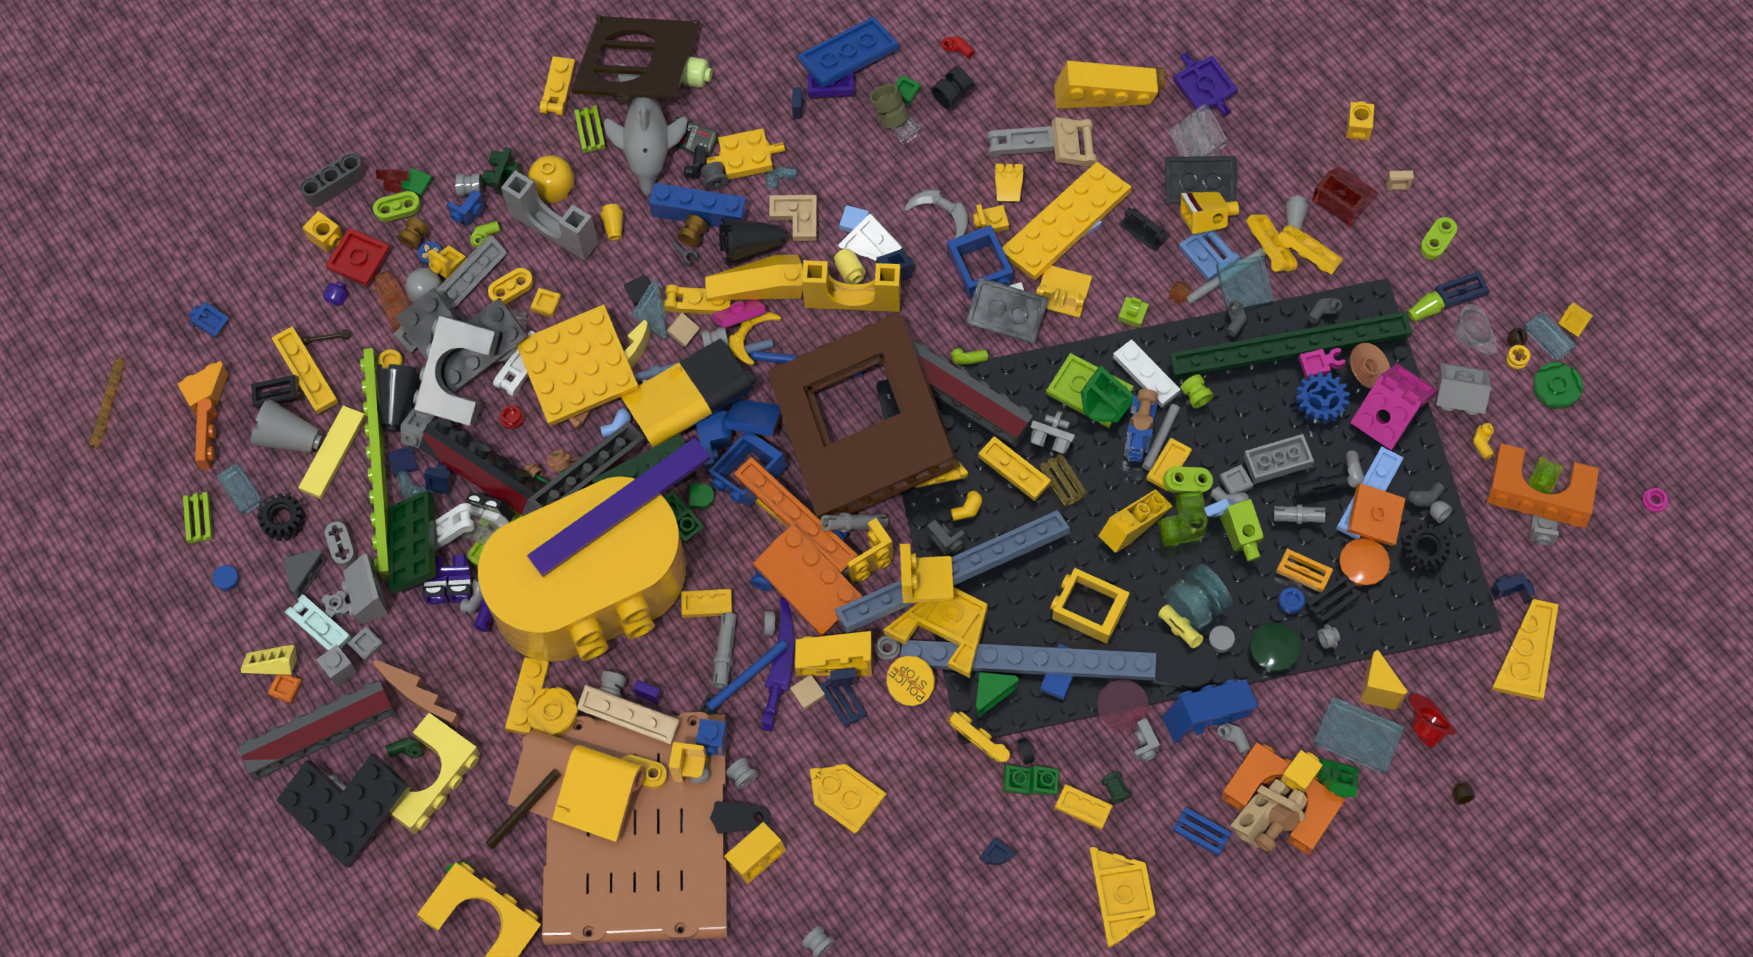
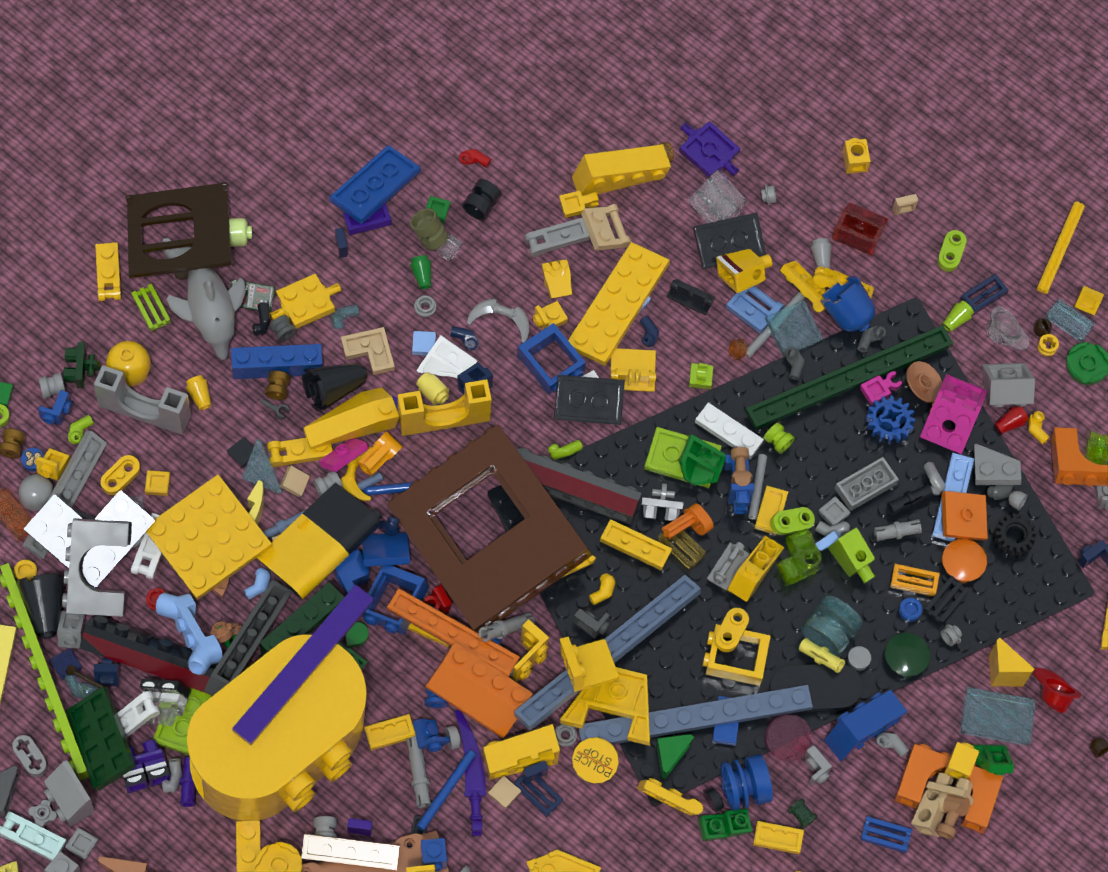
camera: 25 degrees left, 0 degrees up
(404, 468) = (71, 670): none -> dark brown hinge
(529, 435) = (205, 649): none -> light blue plate
(744, 615) = (428, 736): none -> blue bracket
(764, 394) = (390, 526): none -> dark blue arm
(780, 317) = (384, 449): none -> light orange piece
(795, 481) = (439, 599): none -> red tile
(865, 177) = (425, 300): none -> light grey plate
(871, 145) = (422, 271): none -> green cone
(900, 222) = (467, 336): none -> dark blue arm
(1047, 109) = (575, 203): none -> yellow plate
(1062, 740) = (750, 781): none -> blue wheel
(1083, 452) = (693, 516): none -> orange piece
(1090, 576) = (731, 628): none -> yellow plate
(1093, 256) = (651, 333): none -> dark blue arm
(1107, 507) = (727, 565): none -> light grey hinge
(1256, 142) = (769, 194): none -> light grey plate
(1309, 270) = (849, 305): none -> blue cylinder
(1424, 472) = (995, 468): none -> light grey wing
(1457, 426) = (1012, 419): none -> red cone
(1559, 259) = (1060, 247): none -> yellow axle

